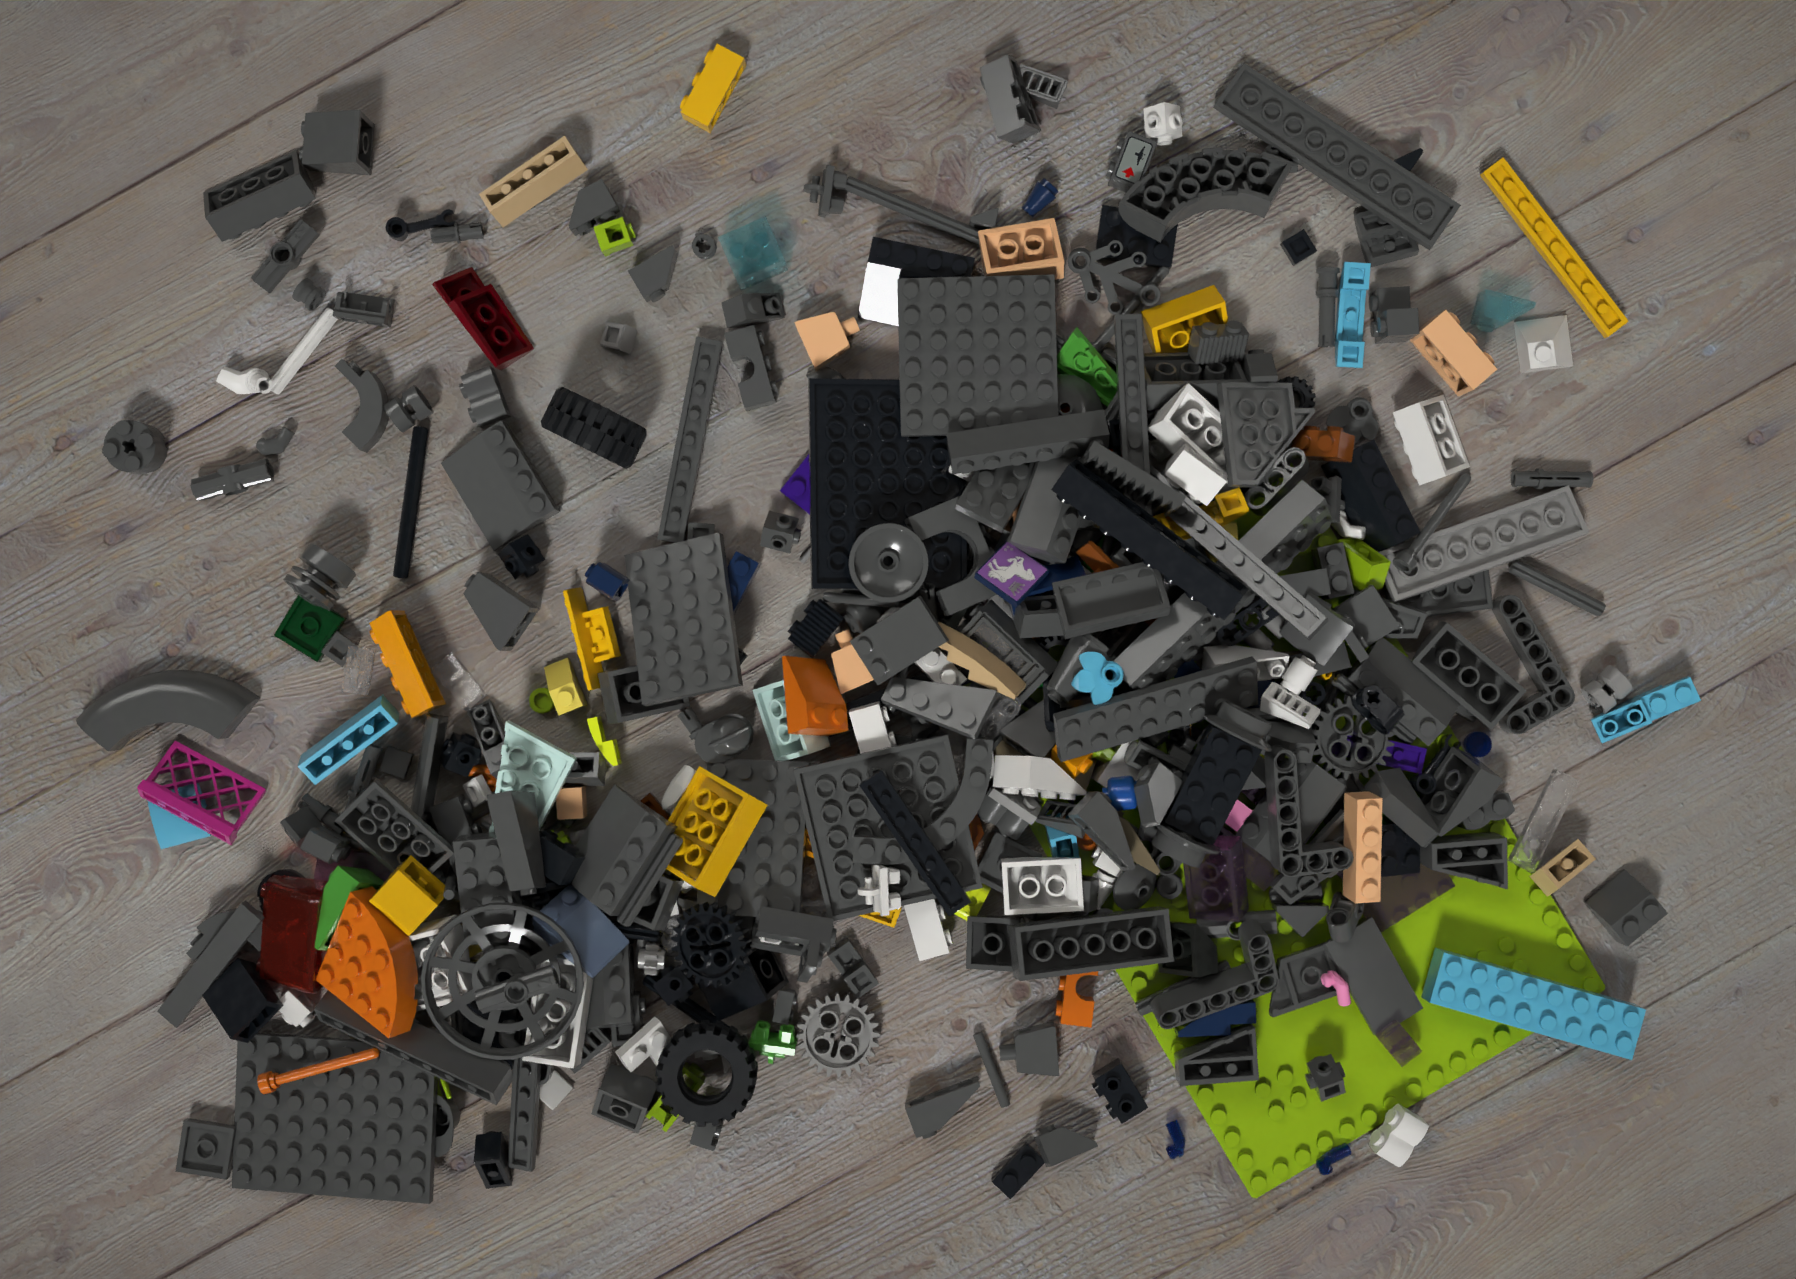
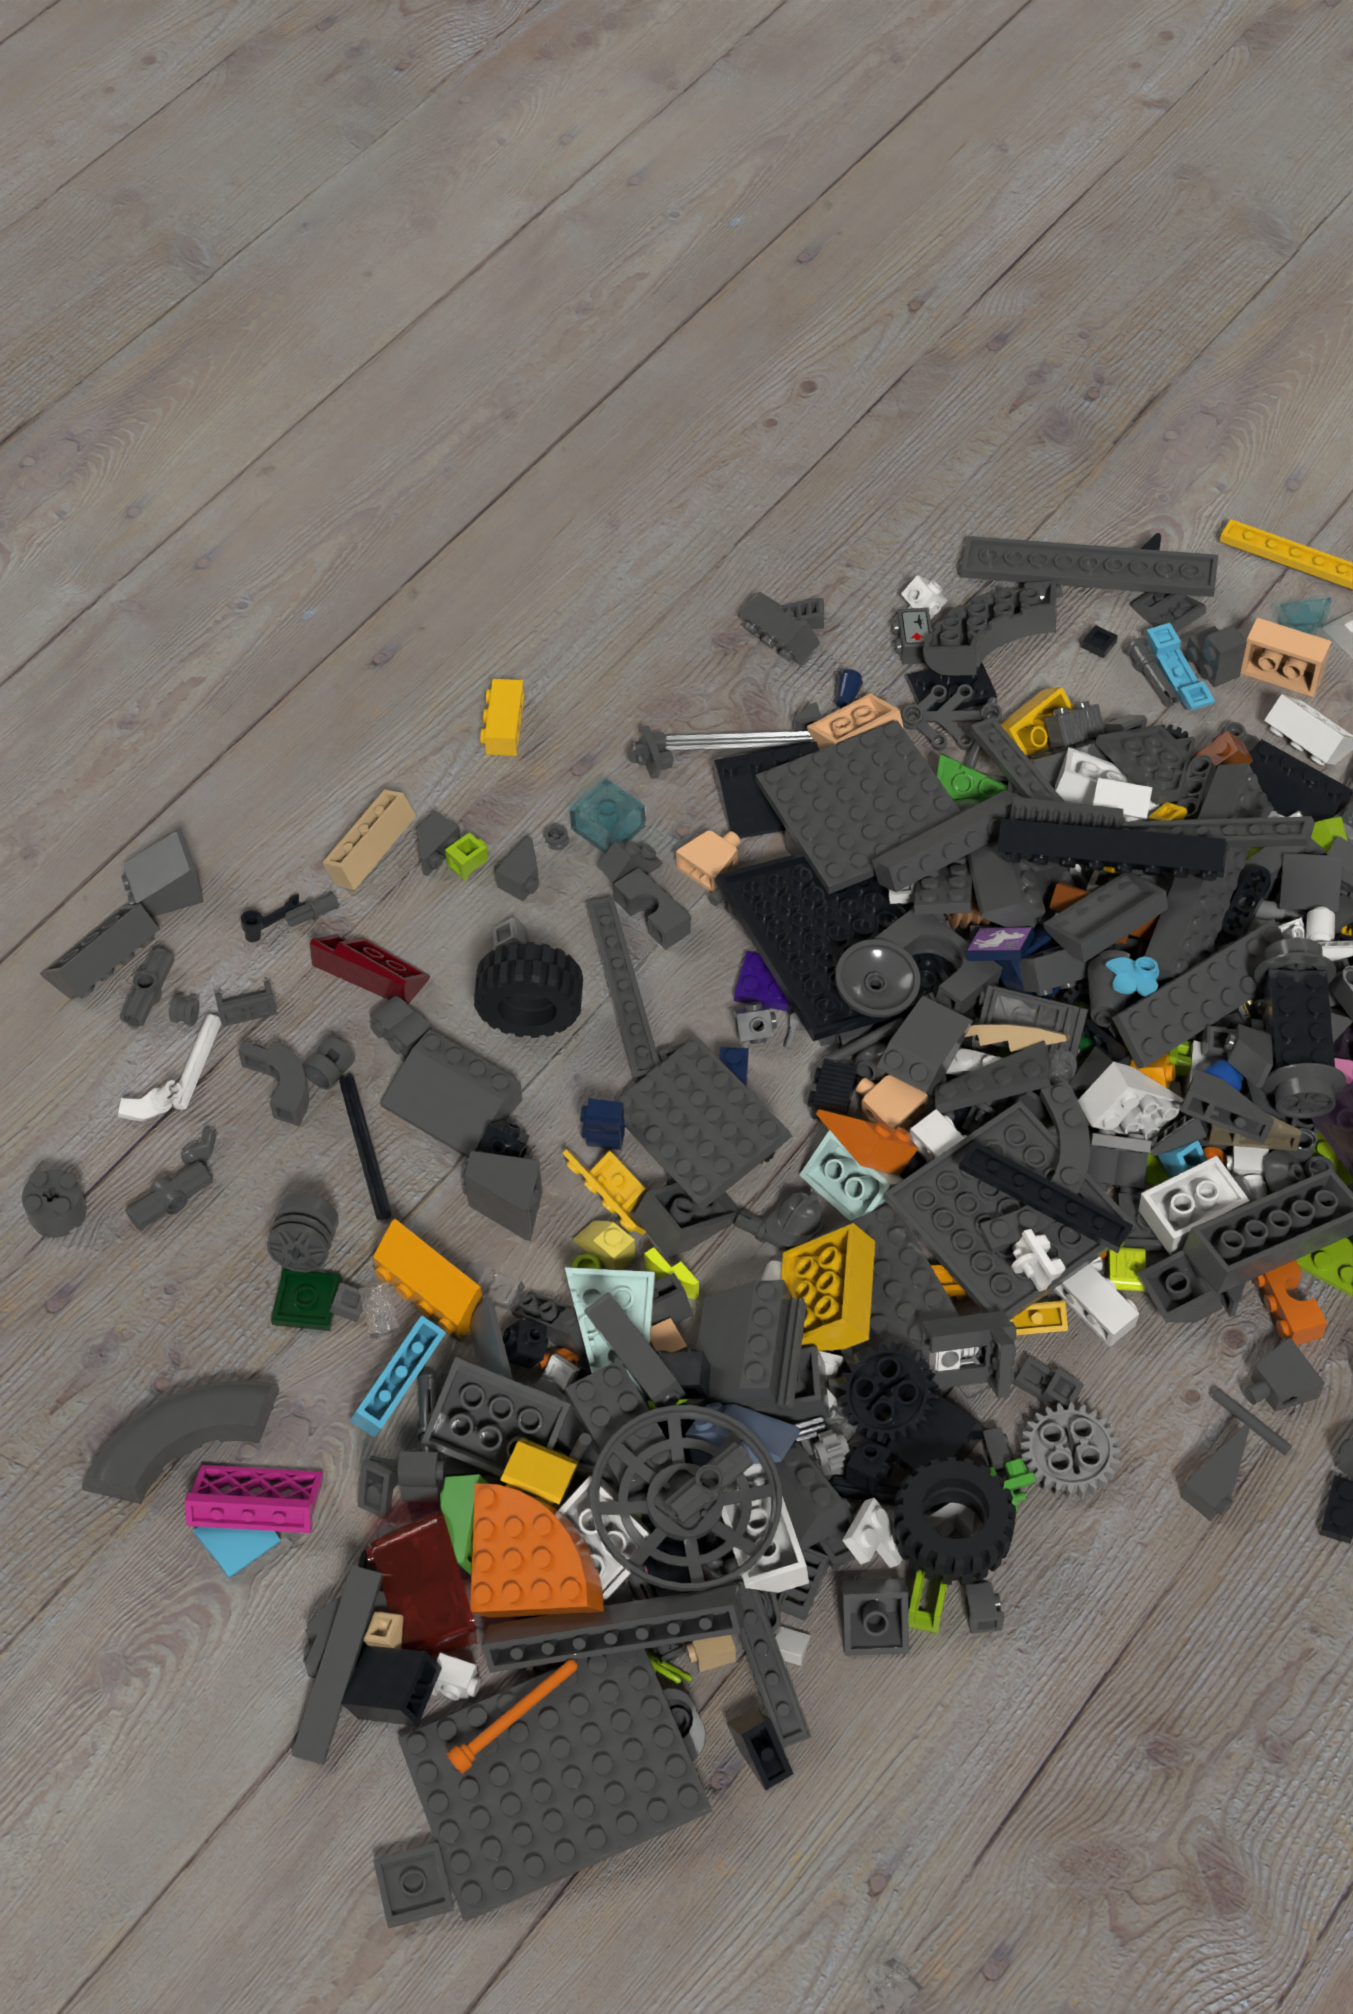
camera: 20 degrees left, 35 degrees down
(250, 959) = (385, 1630): none -> tan slope

